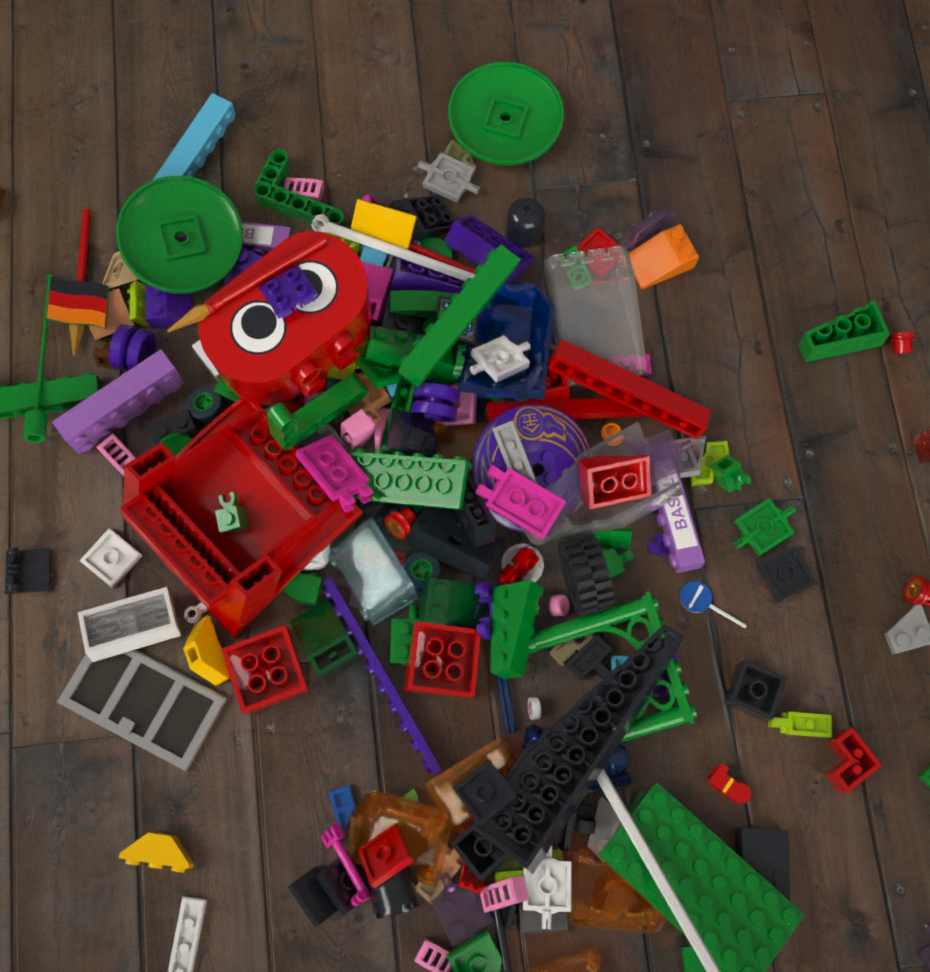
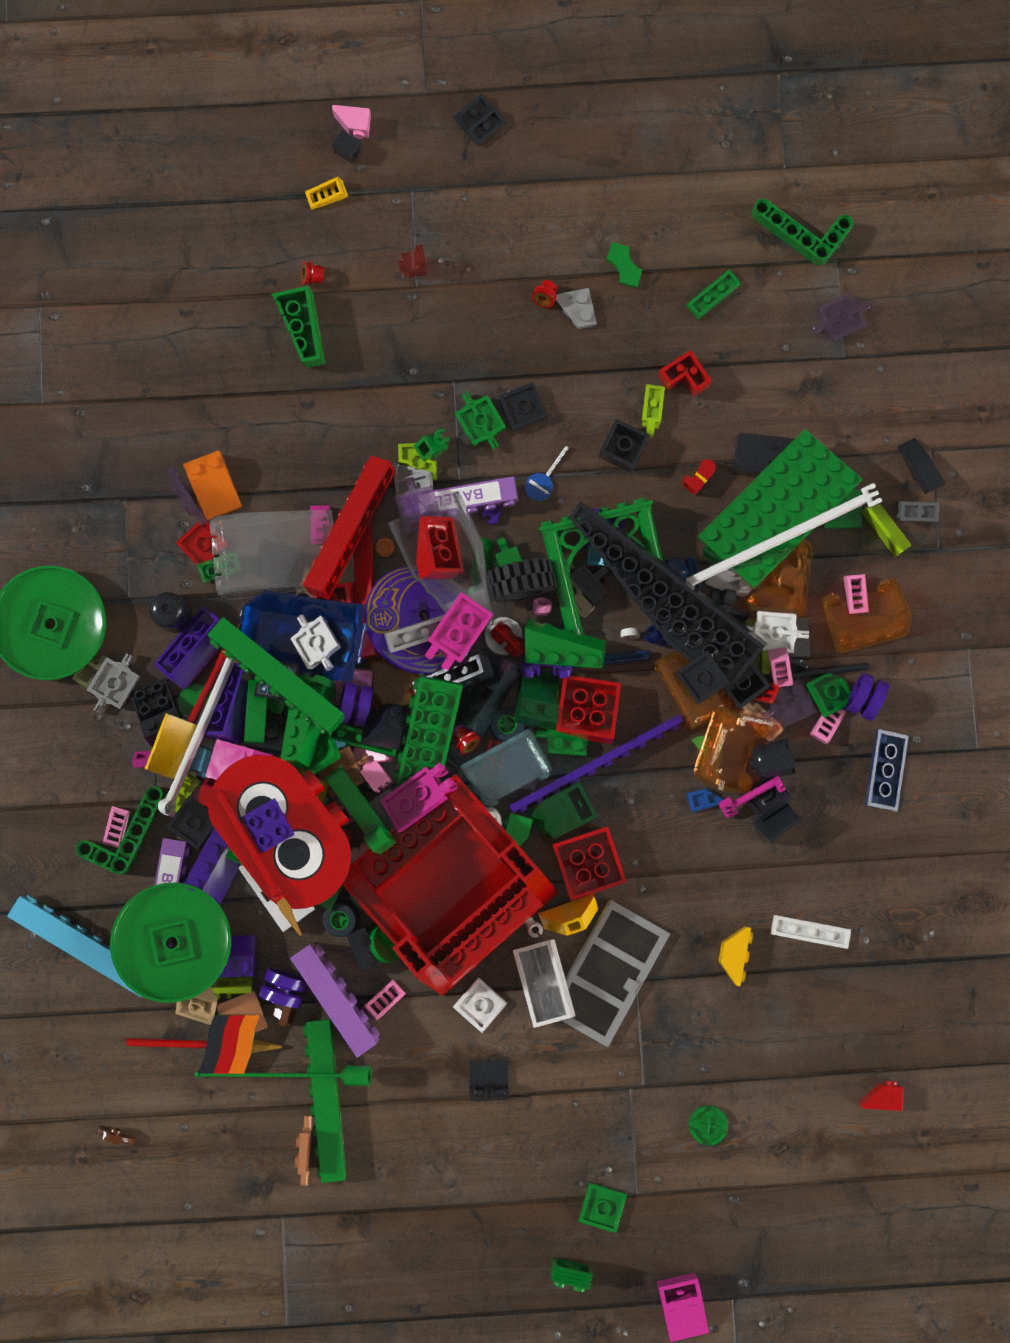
camera: 85 degrees left, 10 degrees up
(232, 517) = (456, 889): green brick -> none
(385, 855) = (747, 762): red tile -> none

